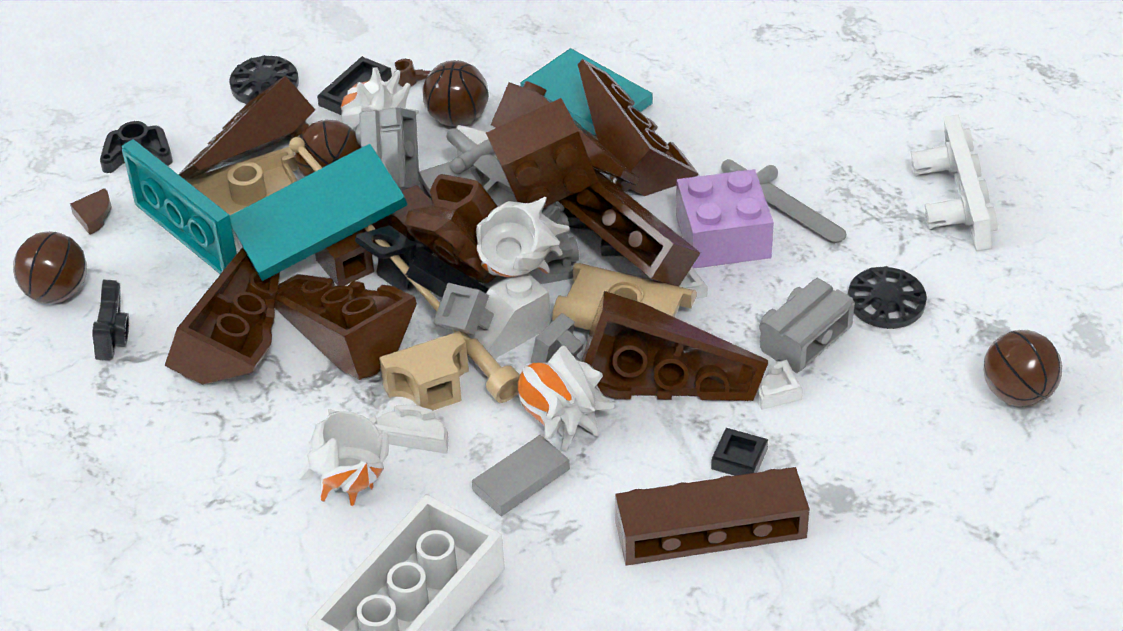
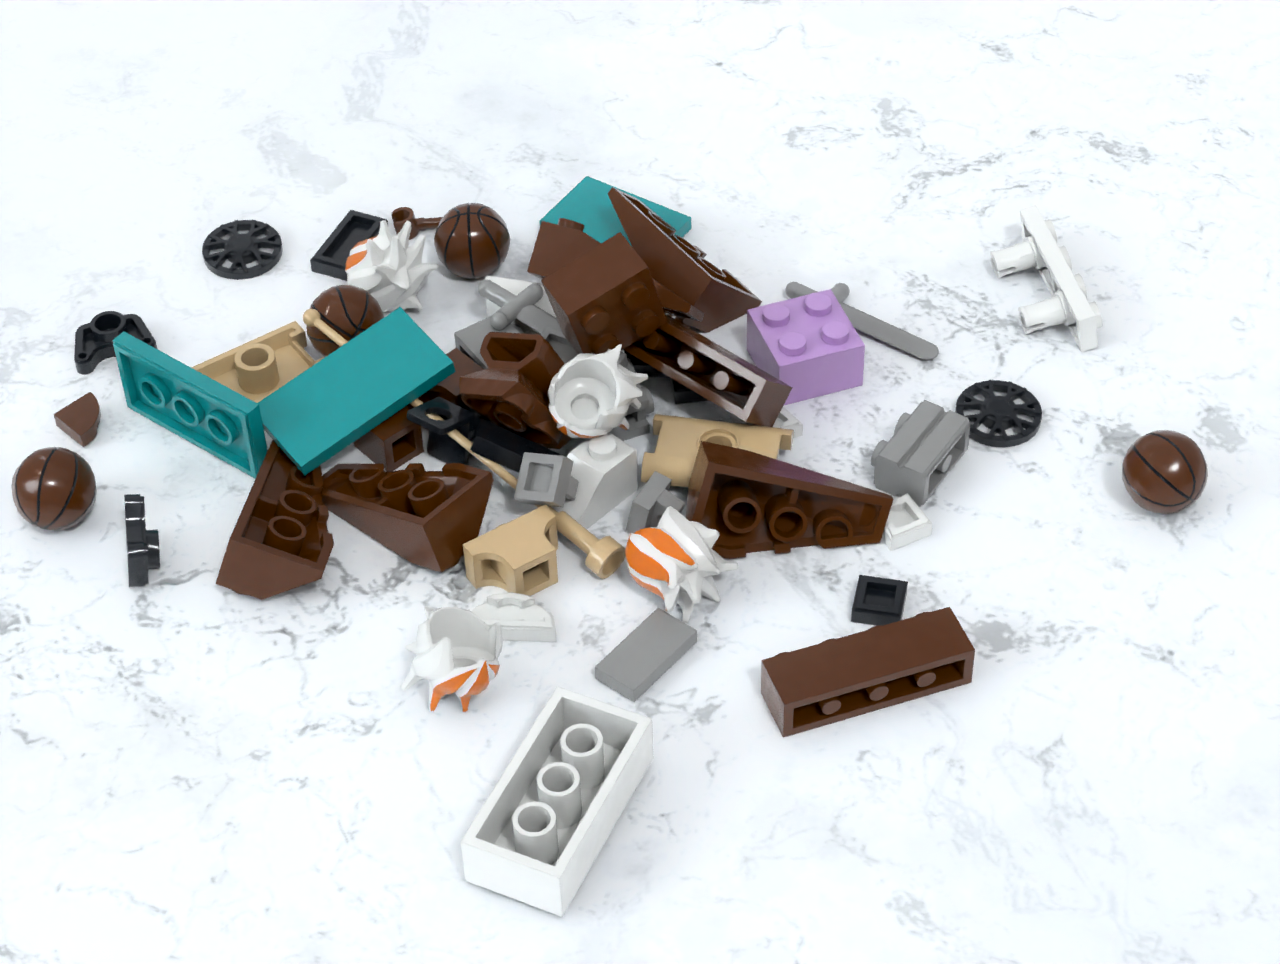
camera: 10 degrees left, 0 degrees up
(259, 124) = (250, 300): reddish brown wedge -> none
(394, 139) = (422, 296): light grey brick -> none

